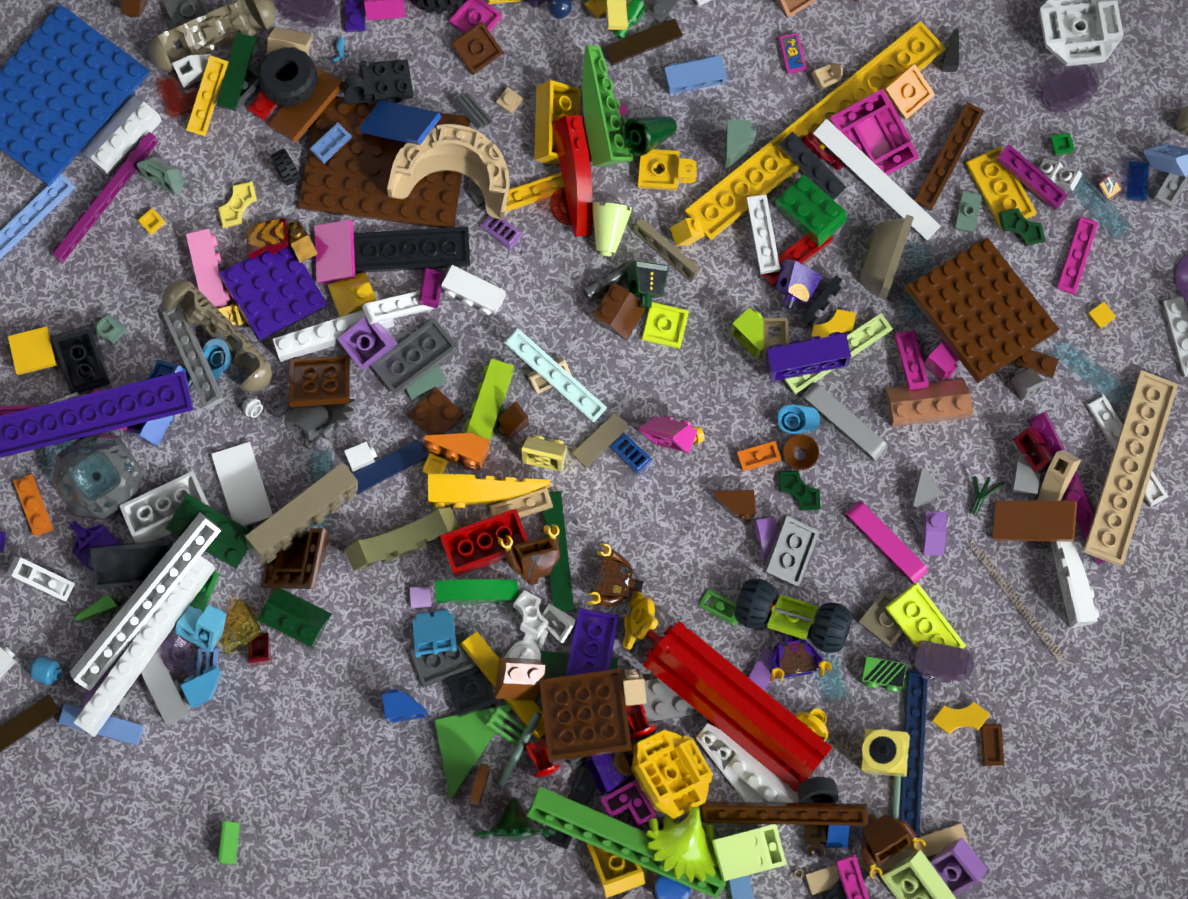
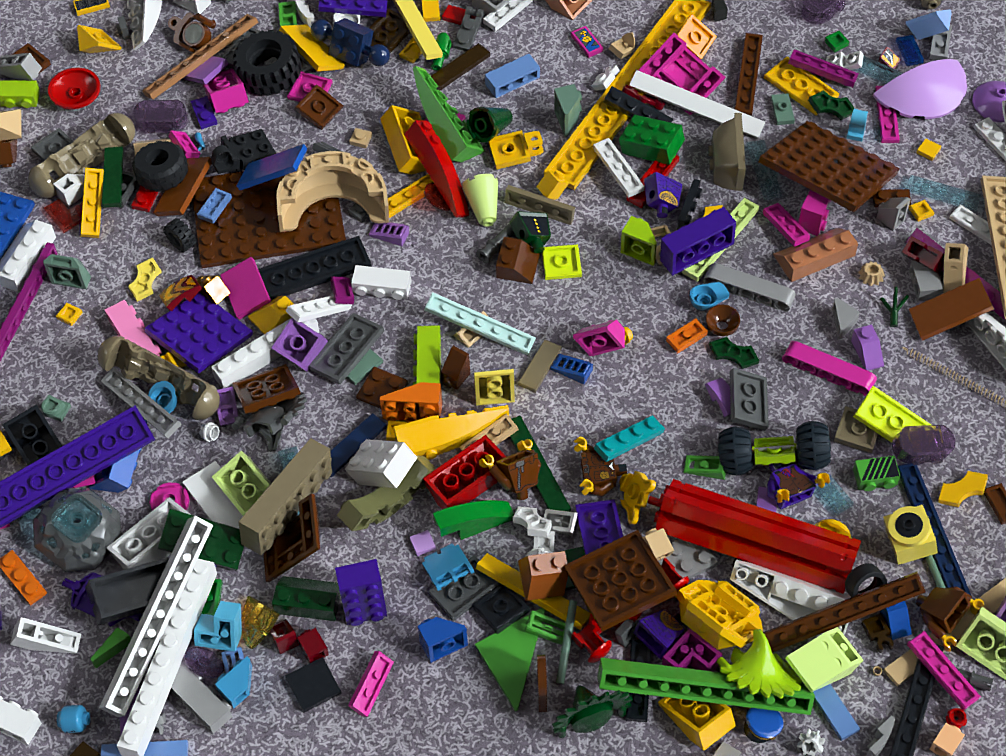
camera: 15 degrees left, 20 degrees down
(195, 457) = (170, 490): none -> dark pink tile
(269, 481) = (241, 481): none -> yellowish green slope
(273, 708) = (313, 684): none -> black tile
(278, 386) = (227, 408): none -> medium lavender slope
(283, 670) = (312, 645): none -> dark red brick
(322, 50) = (185, 143): none -> dark pink plate
(325, 727) = (371, 684): none -> dark pink plate
(340, 643) = (361, 592): none -> dark purple brick
(360, 456) = (327, 437): white brick -> none
(404, 506) = (381, 463): none -> white brick
(656, 555) = (629, 438): none -> teal plate
(737, 503) = (683, 376): reddish brown slope -> none
(793, 112) = (605, 79): none -> white plate
(976, 446) = (871, 273): none -> tan piece
(1036, 264) = (857, 125): none -> medium azure leg
(1060, 387) = (921, 210): none -> yellow tile
(1132, 243) = (925, 90): none -> lavender brick

